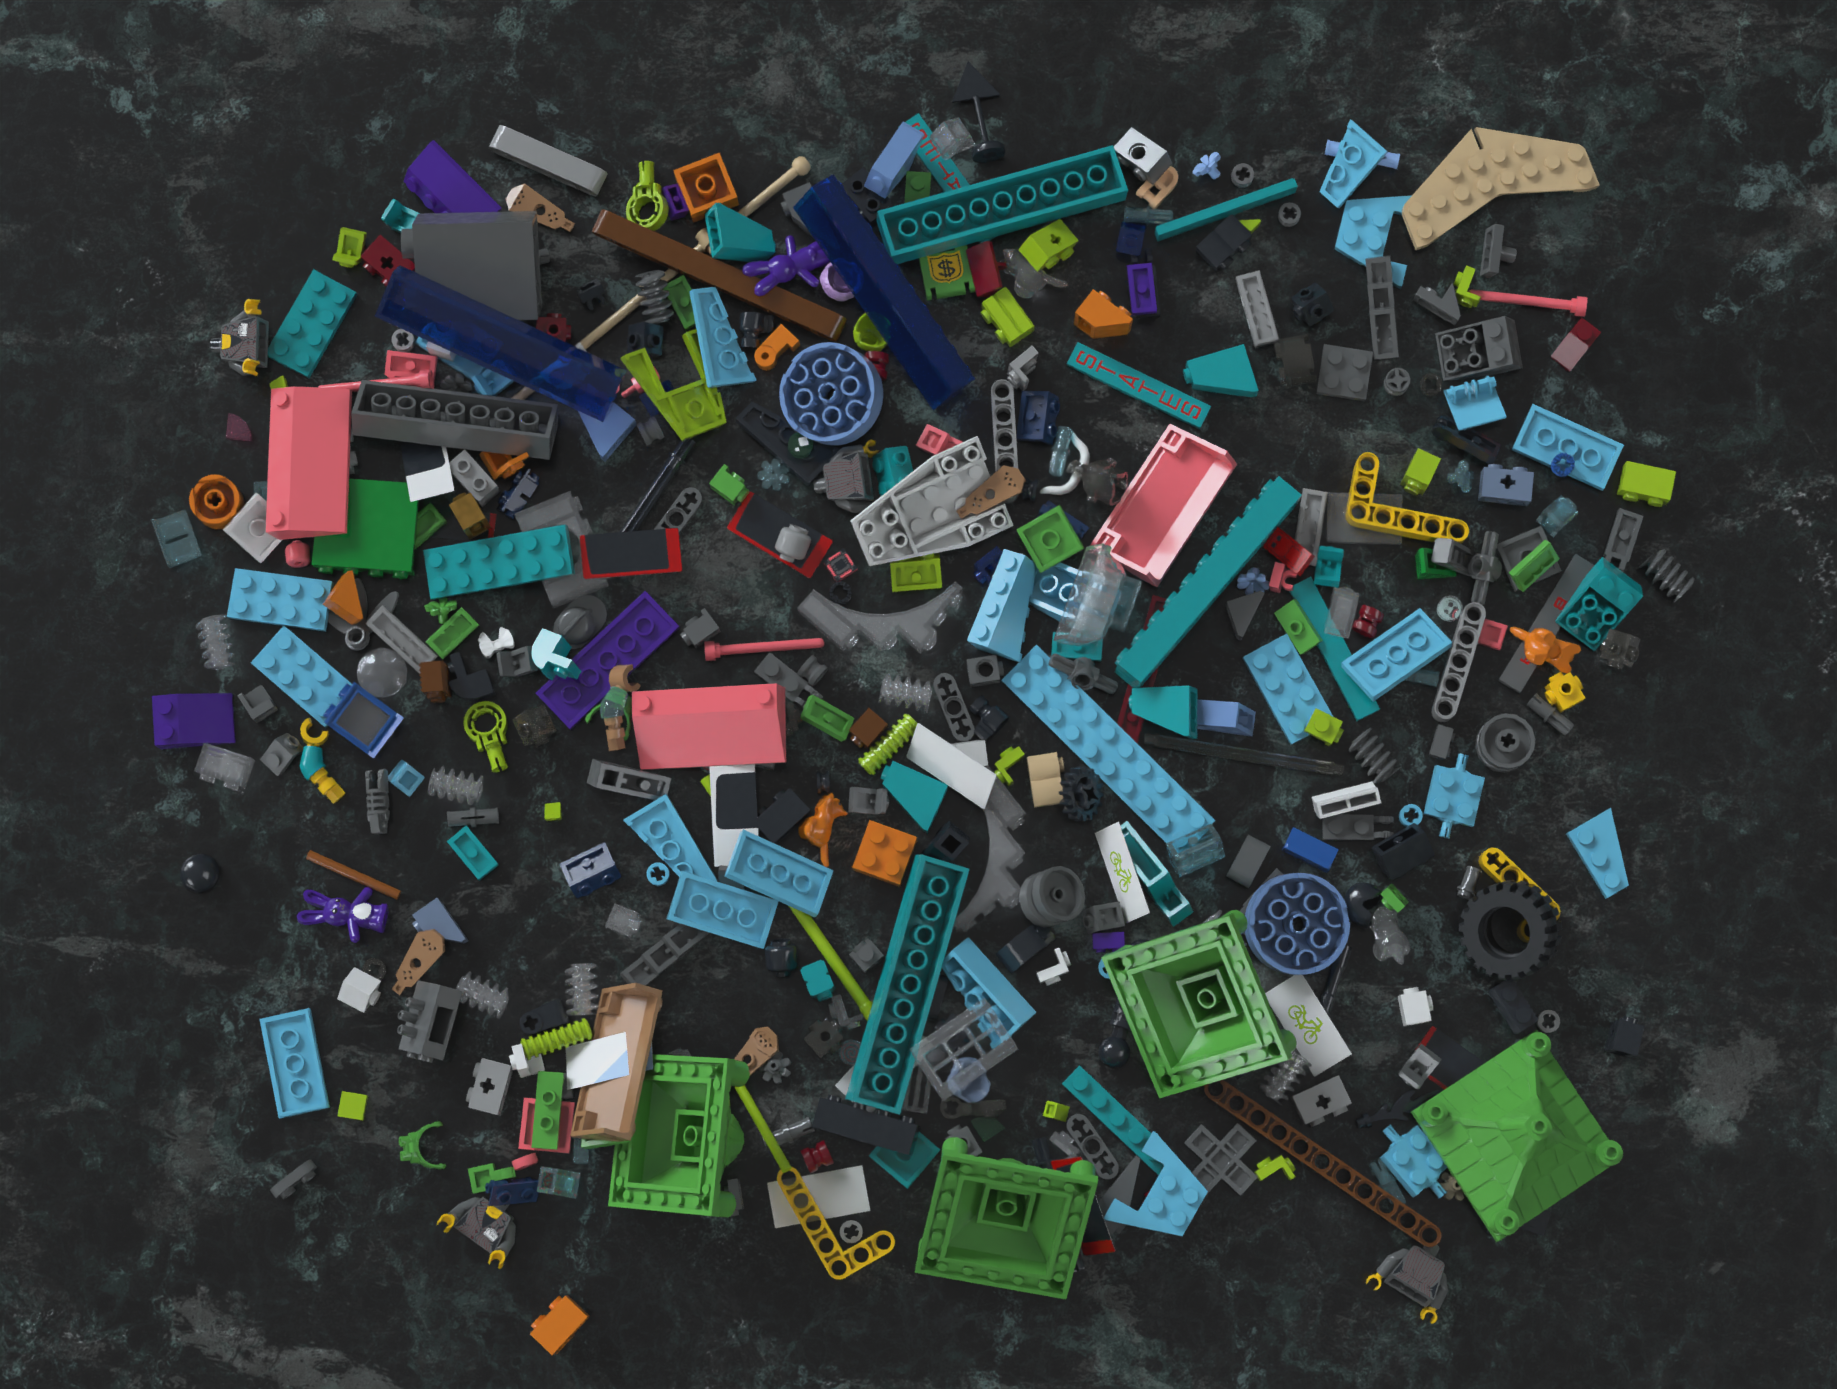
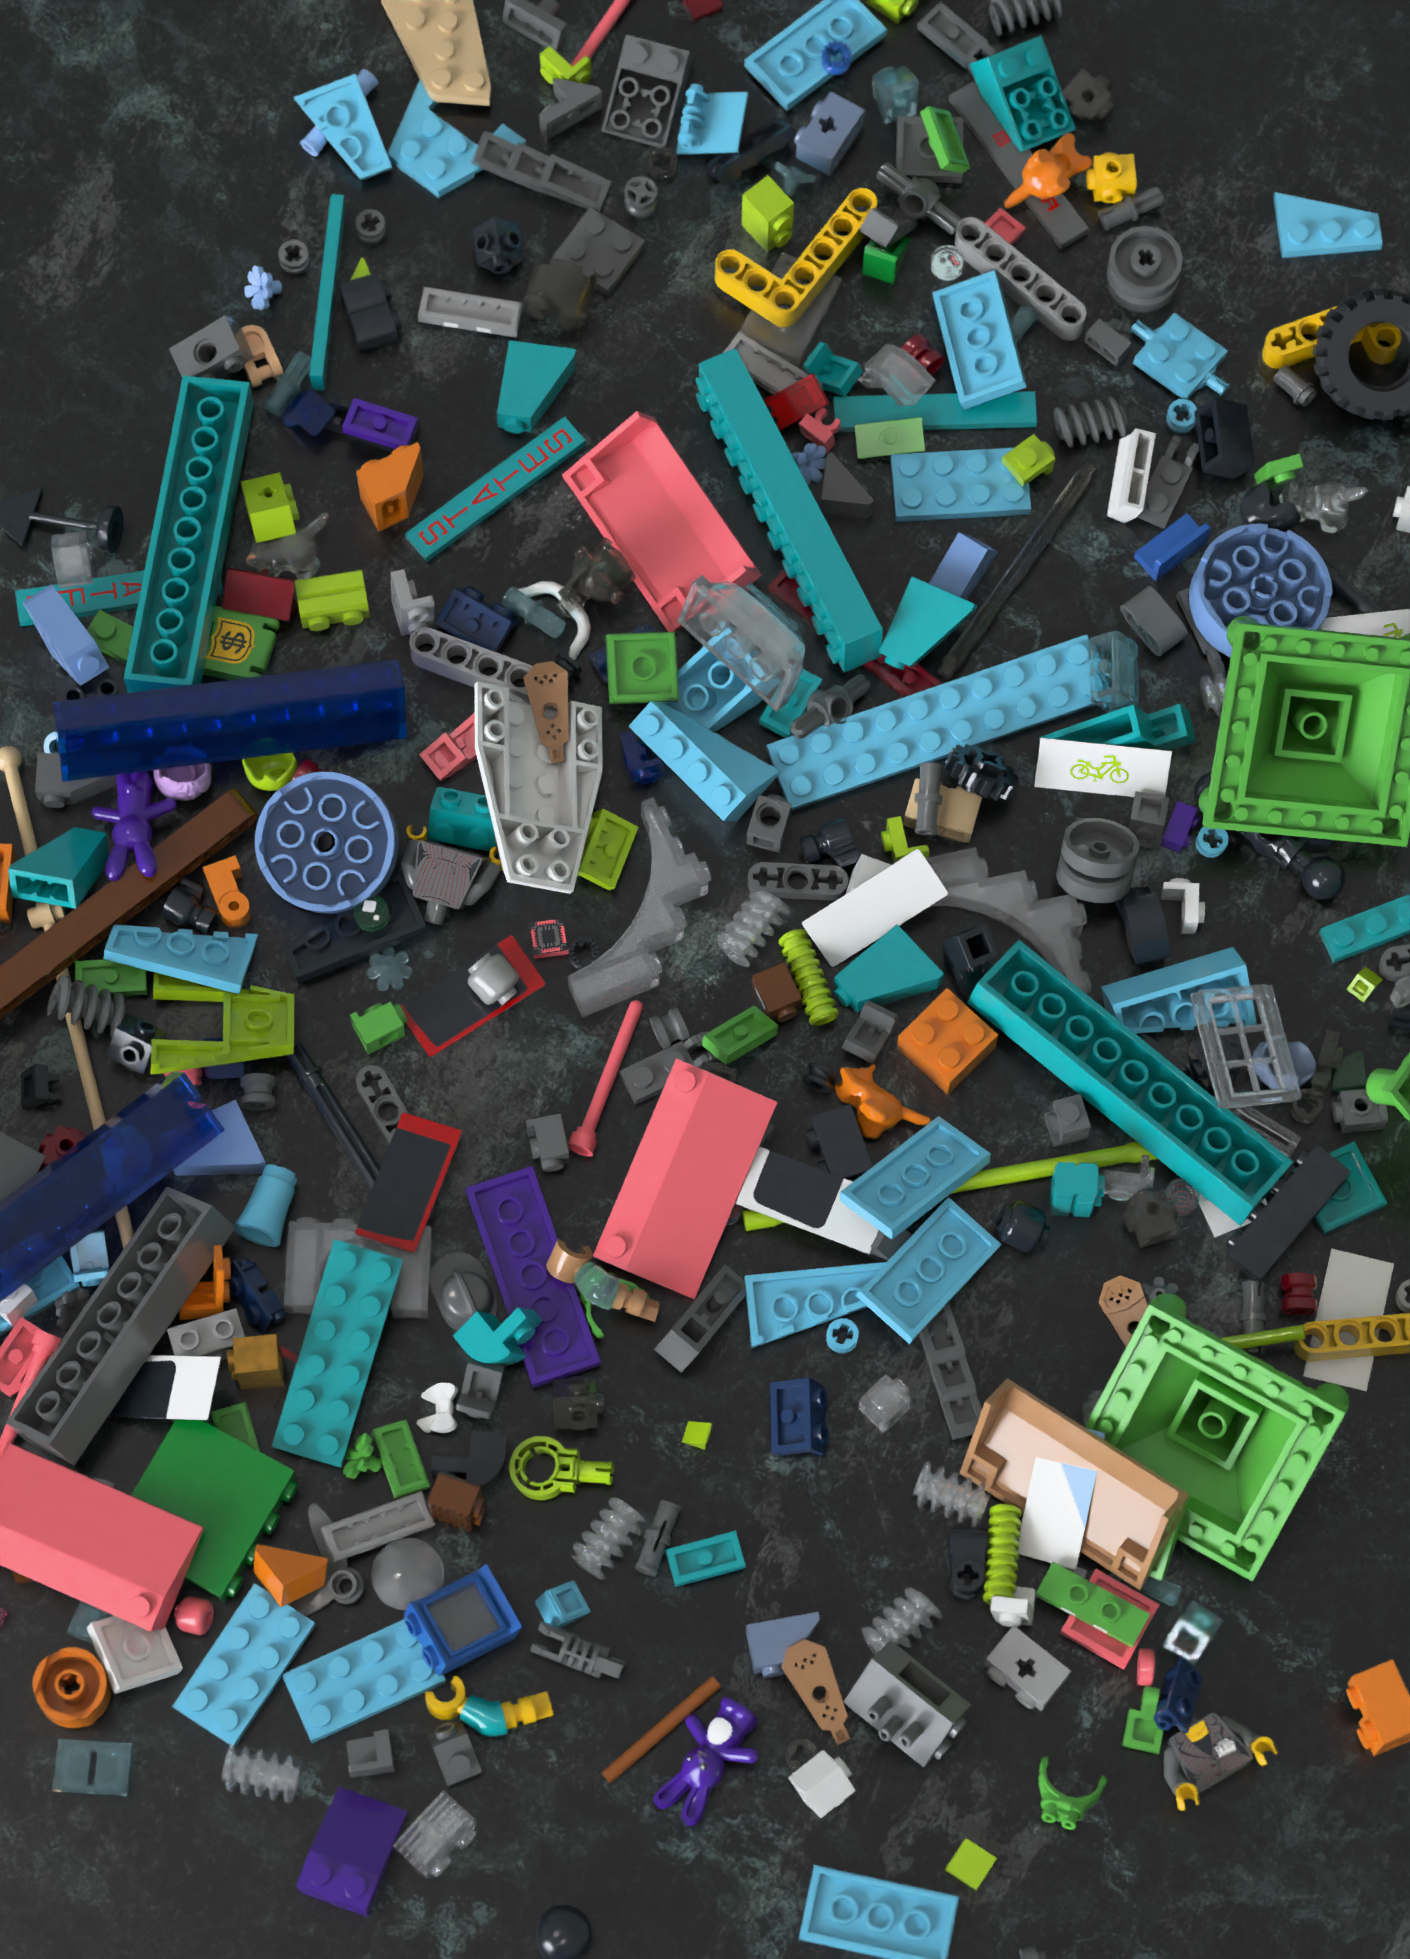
camera: 70 degrees left, 10 degrees down
(577, 473) = (267, 1207): none -> medium azure plant
(1042, 766) = (928, 798): none -> dark grey pin

